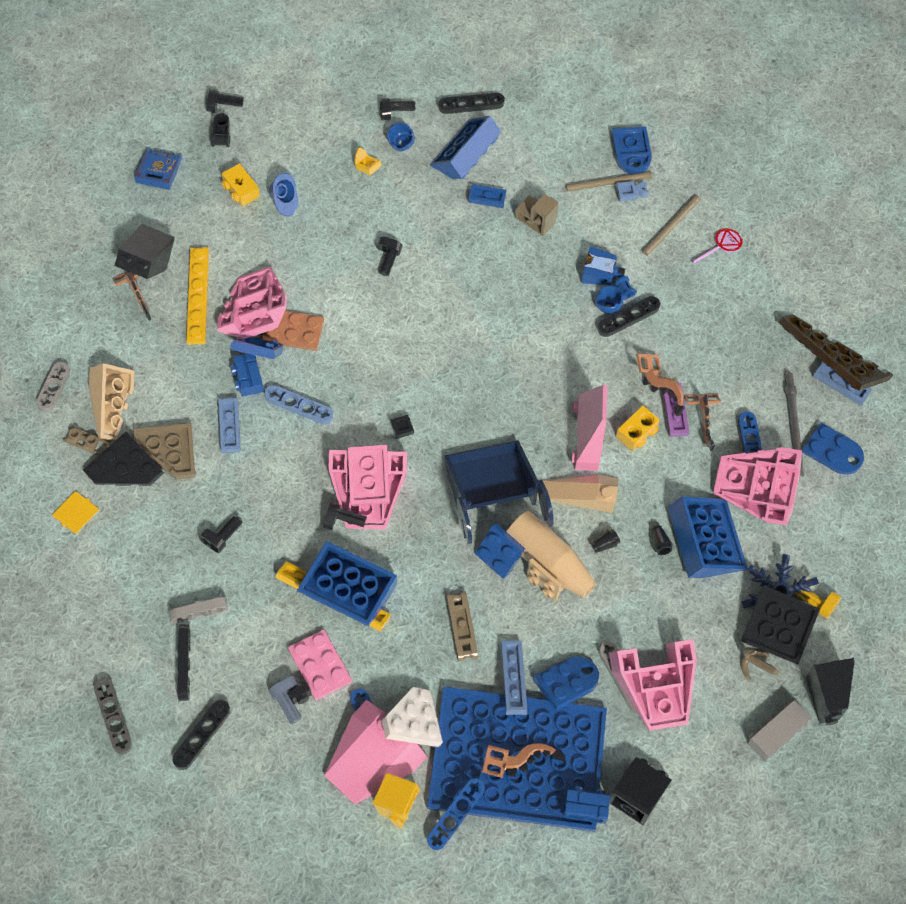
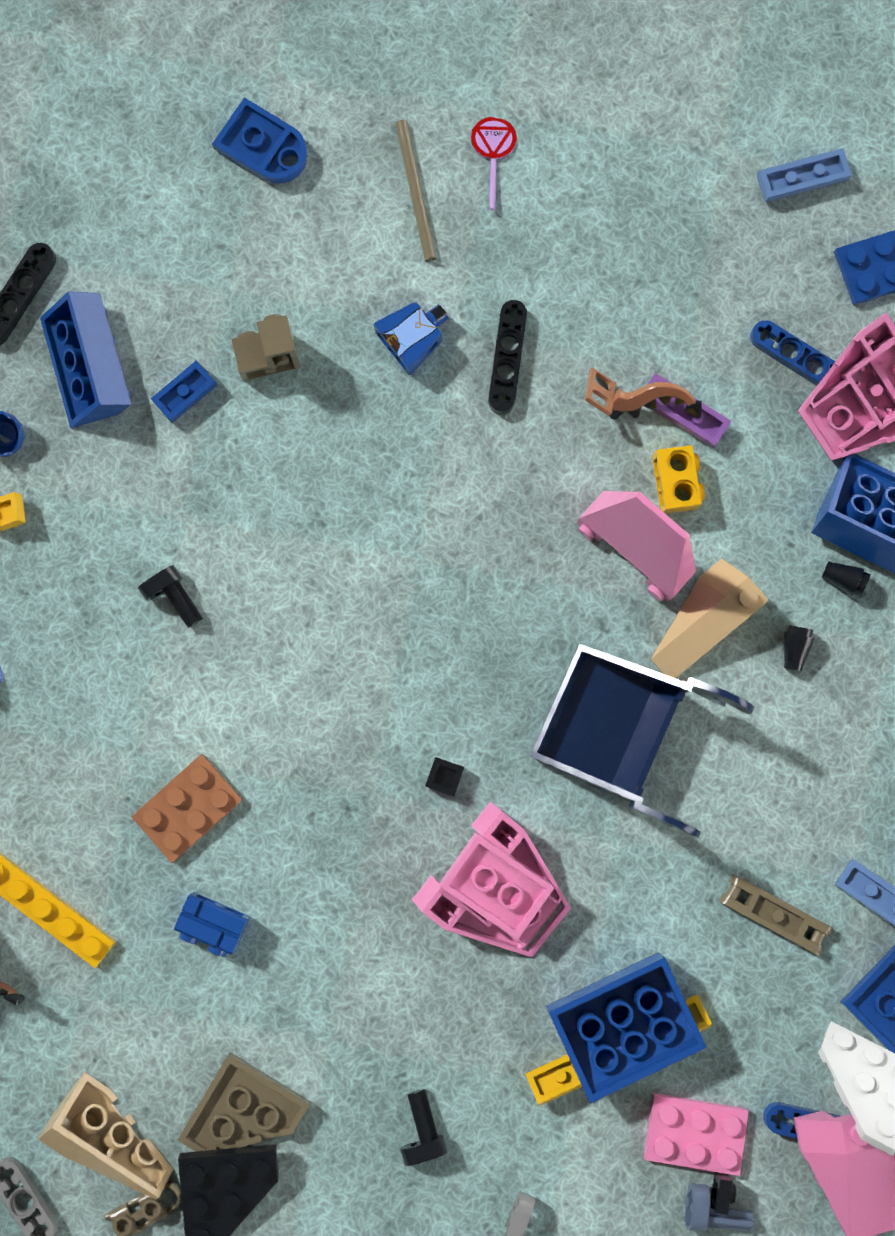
camera: 50 degrees left, 20 degrees up
(229, 425) = (269, 1003): medium blue plate -> none
(254, 305) = (113, 839): bright pink wedge -> none
(258, 347) = (183, 885): blue container -> none
(299, 404) = (309, 889): medium blue beam -> none
(335, 512) = (506, 961): black piece -> none
(500, 551) = (721, 793): blue plate -> none
(550, 560) = (780, 738): tan piece -> none
(608, 181) = (286, 214): dark tan piece -> none
(609, 295) = (472, 353): blue hair -> none
(625, 286) = (464, 328): blue bush -> none
(630, 191) = (324, 201): medium blue plate -> none
(704, 408) = (721, 378): nougat piece -> none
(791, 392) = (766, 246): flat silver bar -> none
(836, 355) = (772, 148): dark brown wing -> none

